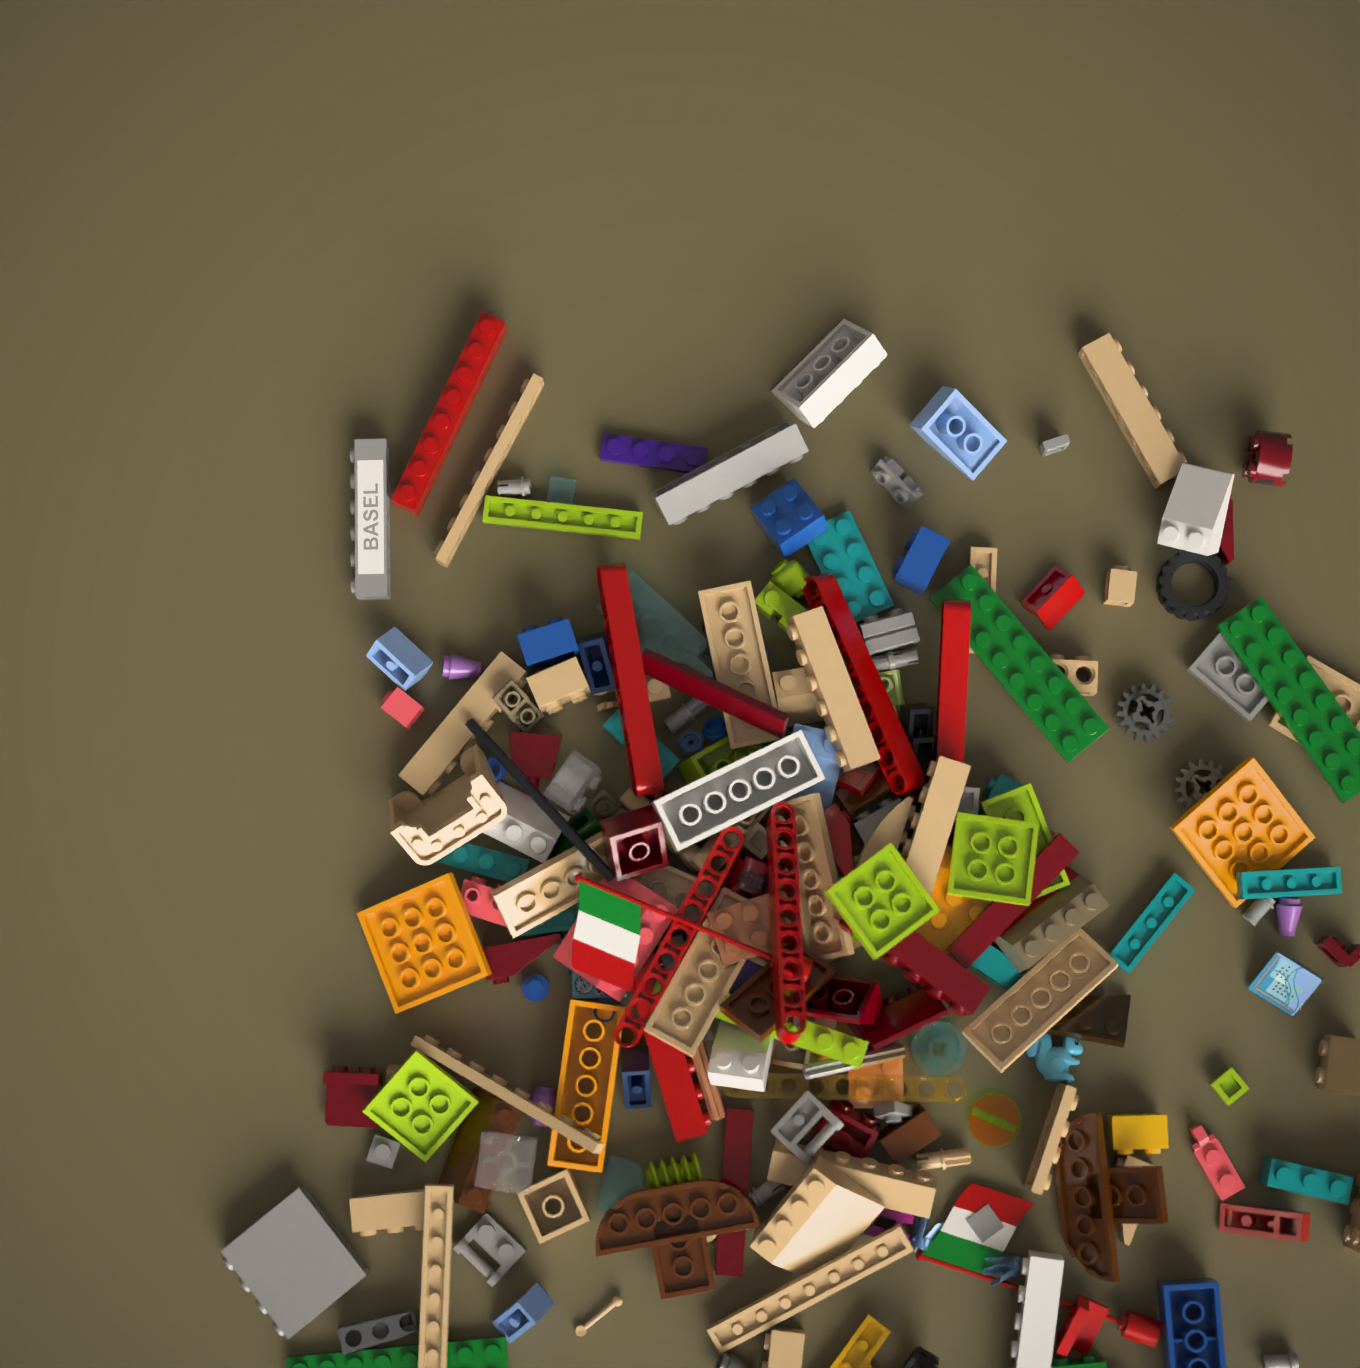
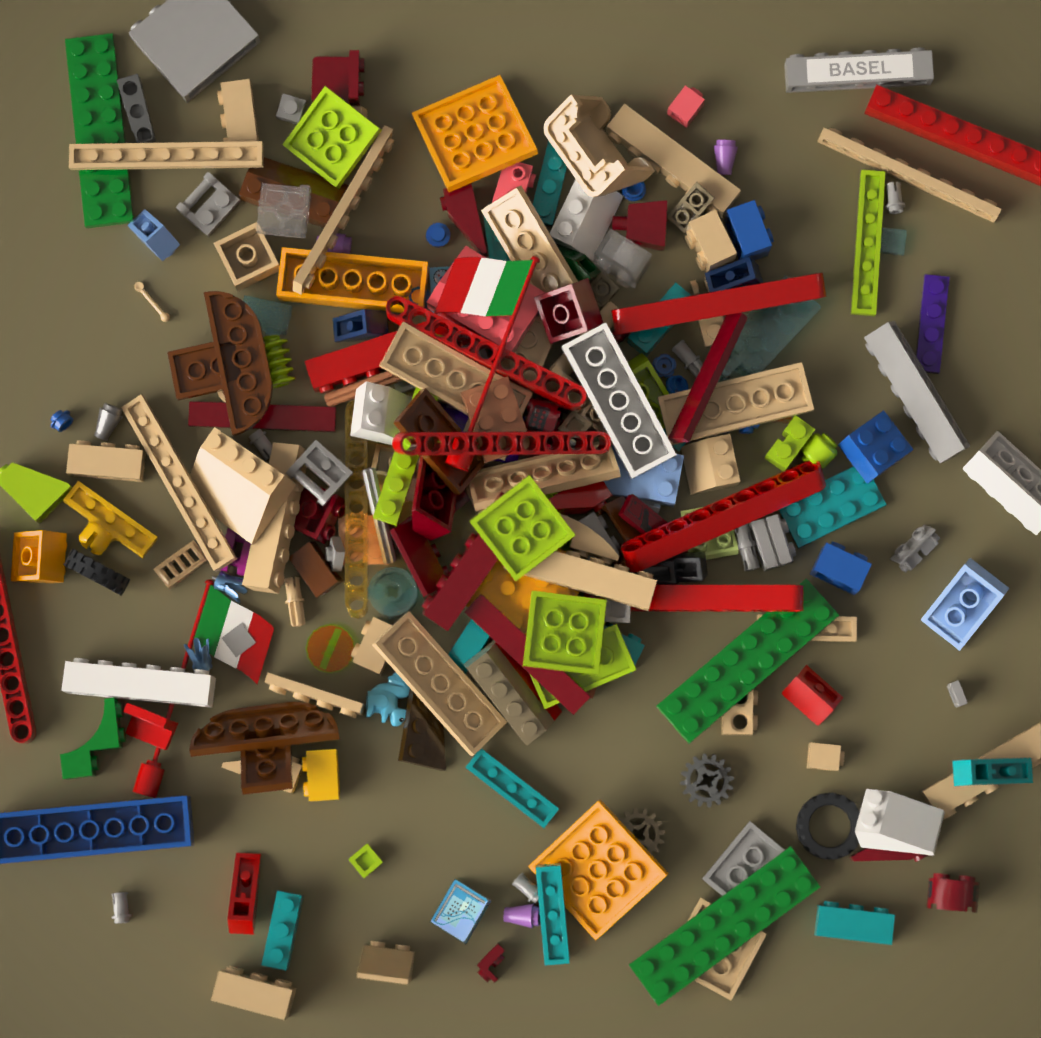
camera: 90 degrees right, 0 degrees up
(399, 658) = (730, 100): light blue brick -> none
(540, 800) = (605, 227): black piece -> none
(833, 689) = (715, 486): tan brick -> none
(914, 1306) = (170, 583): none -> tan slope
(980, 1070) = (364, 653): none -> tan brick
(1143, 410) = (992, 771): none -> teal slope
(1215, 1163) = (295, 849): coral hinge -> none
(1297, 562) = (854, 923): none -> teal brick

